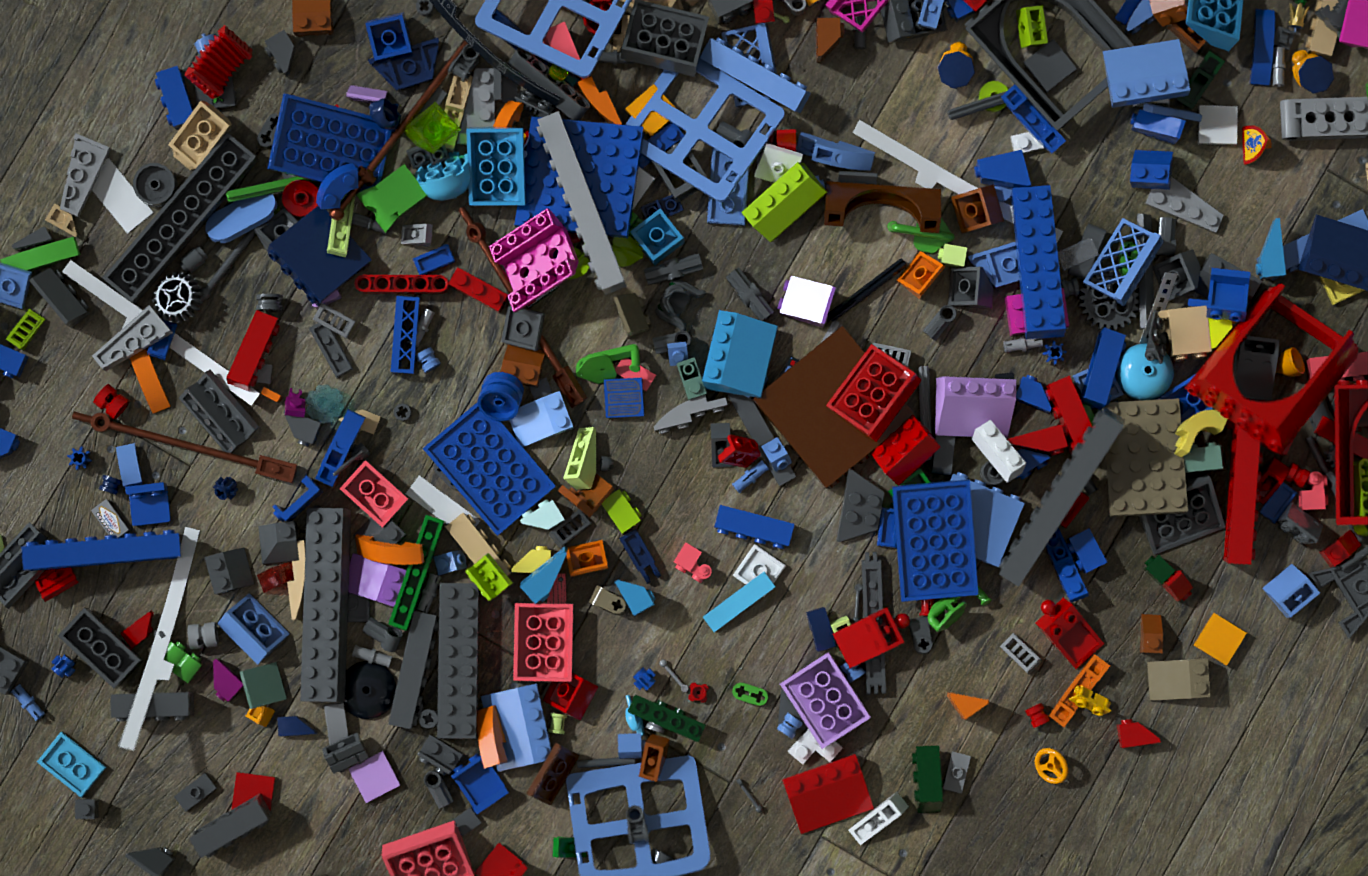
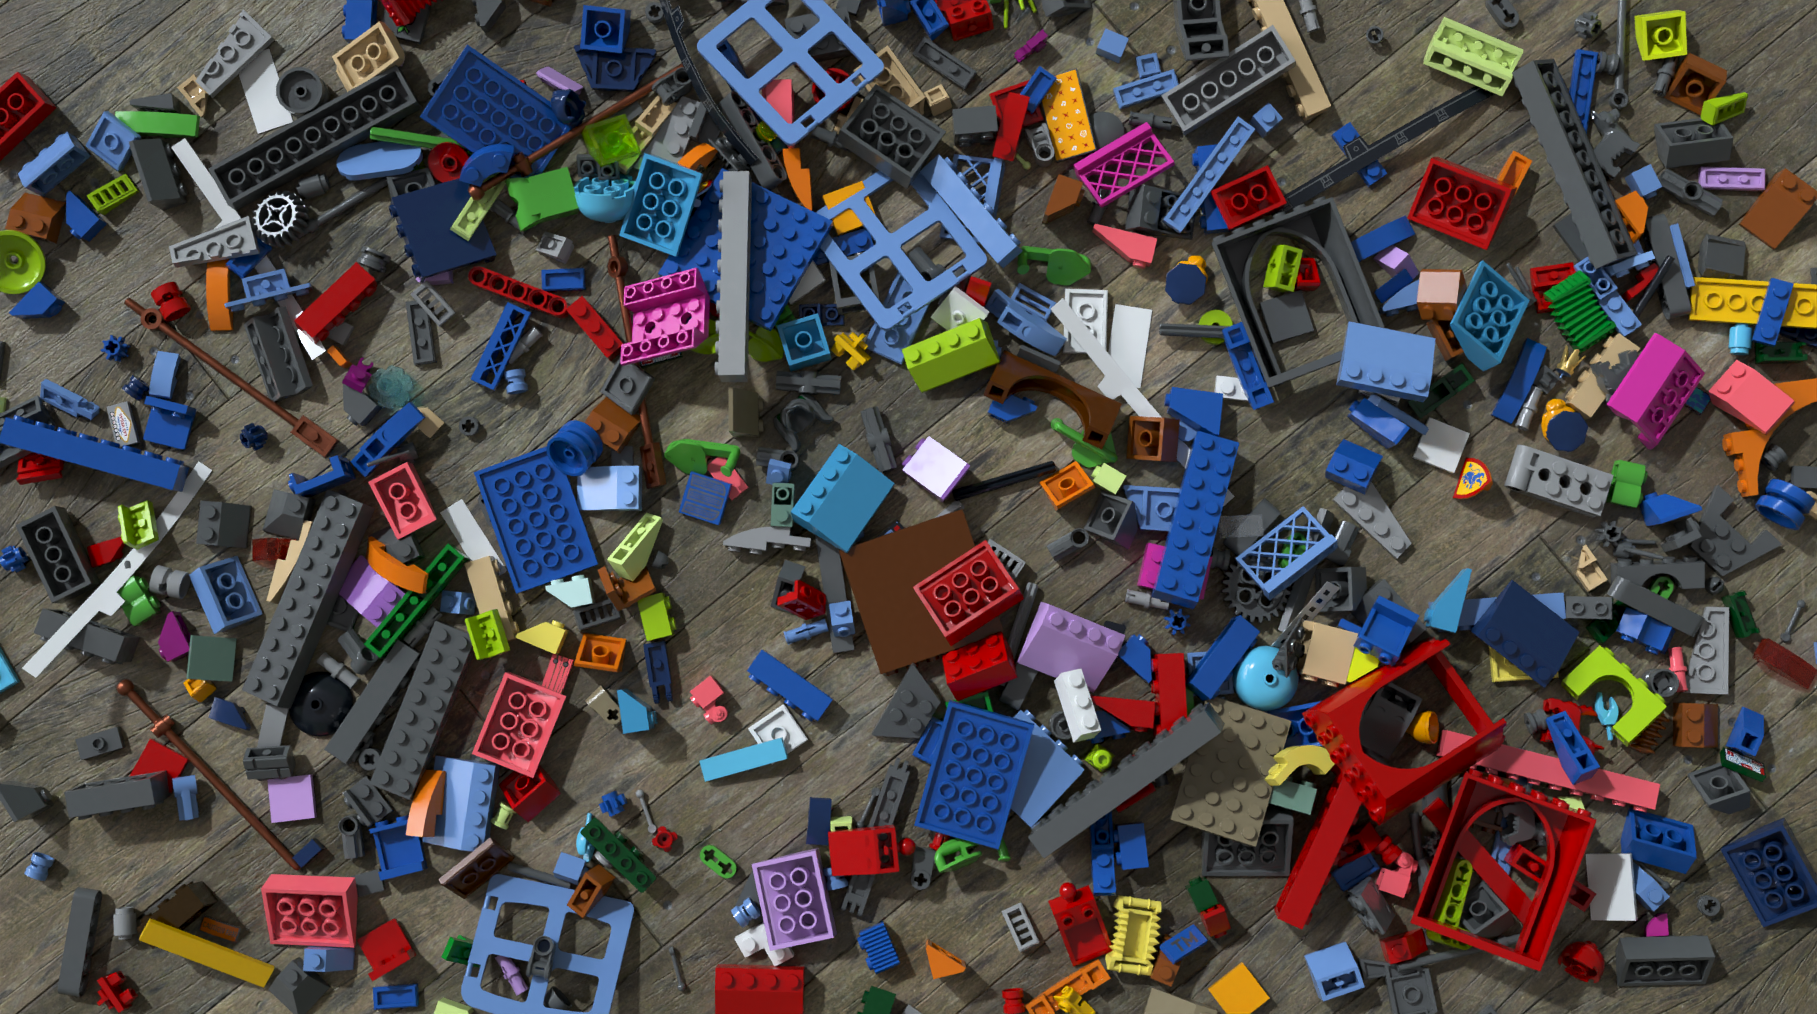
camera: 25 degrees right, 0 degrees up
(56, 517) = (67, 400): none -> medium blue hinge
(158, 597) = (138, 524): none -> lime bracket
(187, 359) = (266, 287): none -> medium blue bracket
(244, 758) = (163, 726): none -> copper bar
(283, 803) = (185, 793): none -> medium blue piece
(406, 816) = (308, 852): none -> dark blue piece
(540, 581) = (539, 660): dark azure slope -> none
(614, 851) = (512, 974): none -> lavender pin
(706, 231) = (844, 343): none -> yellow hips
(836, 125) = (1031, 292): none -> medium blue tile
(849, 93) = (1063, 266): none -> bright green piece
(851, 228) = (1012, 409): none -> blue slope
(885, 119) = (1092, 309): none -> white tile
(898, 55) = (1131, 246): none -> coral slope
(910, 714) = (878, 947): none -> blue brick
(927, 133) = (1130, 340): none -> white sticker
(1033, 488) = (1099, 757): none -> lime piece
(1054, 25) = (1307, 276): none -> red slope
(1117, 623) = (1135, 935): none -> light yellow piece
(1159, 615) = (1183, 944): none -> blue tile

